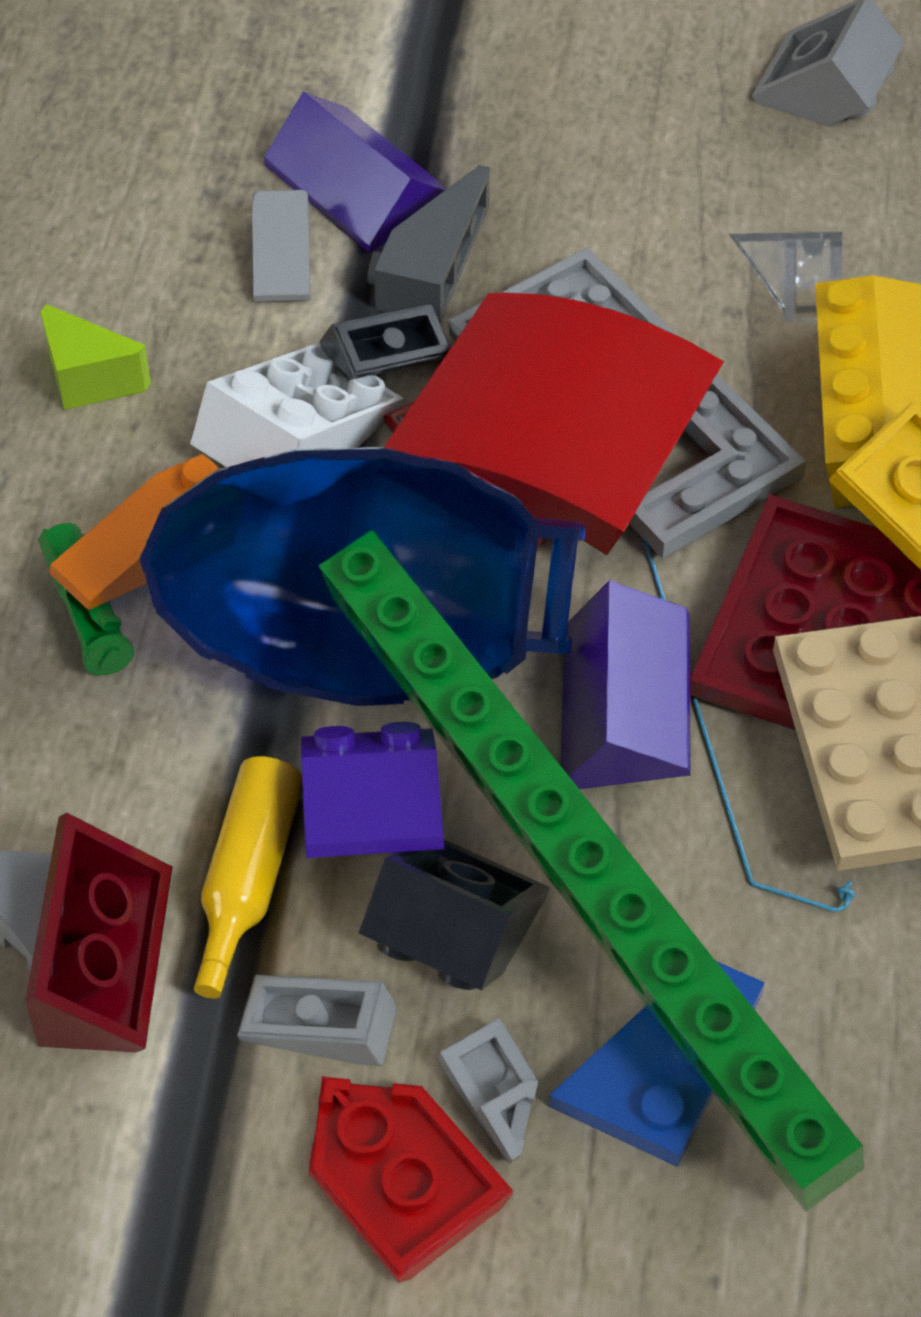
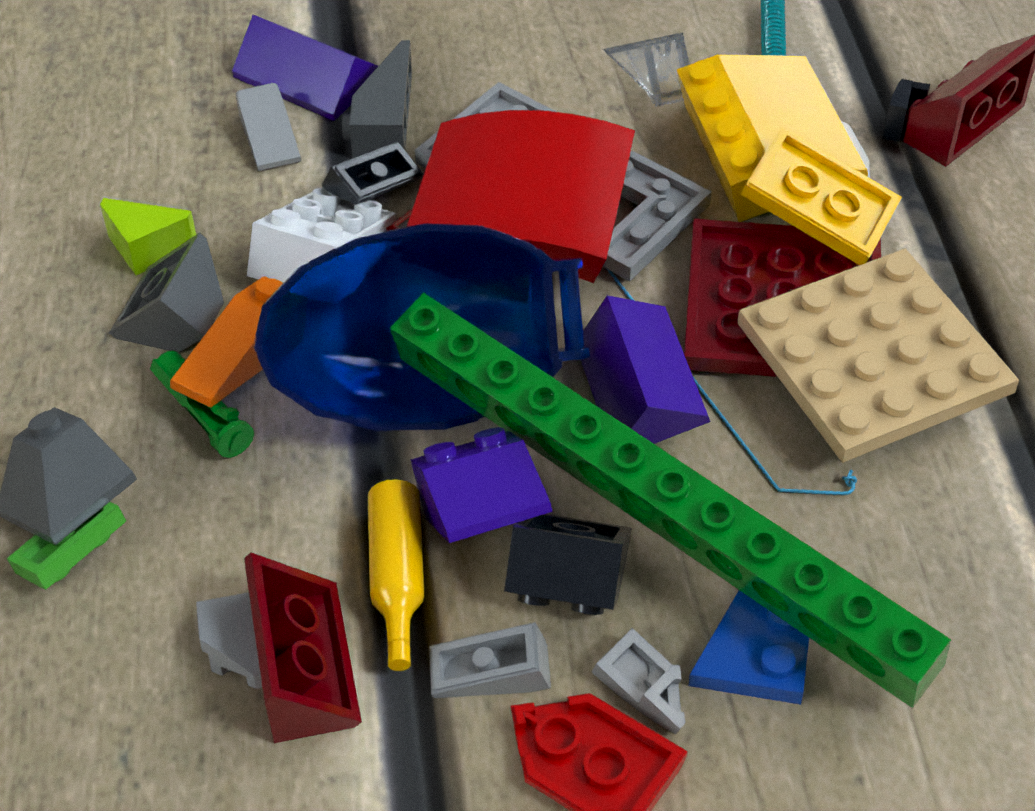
camera: 15 degrees left, 5 degrees down
(92, 456) = (173, 300): none -> dark grey slope

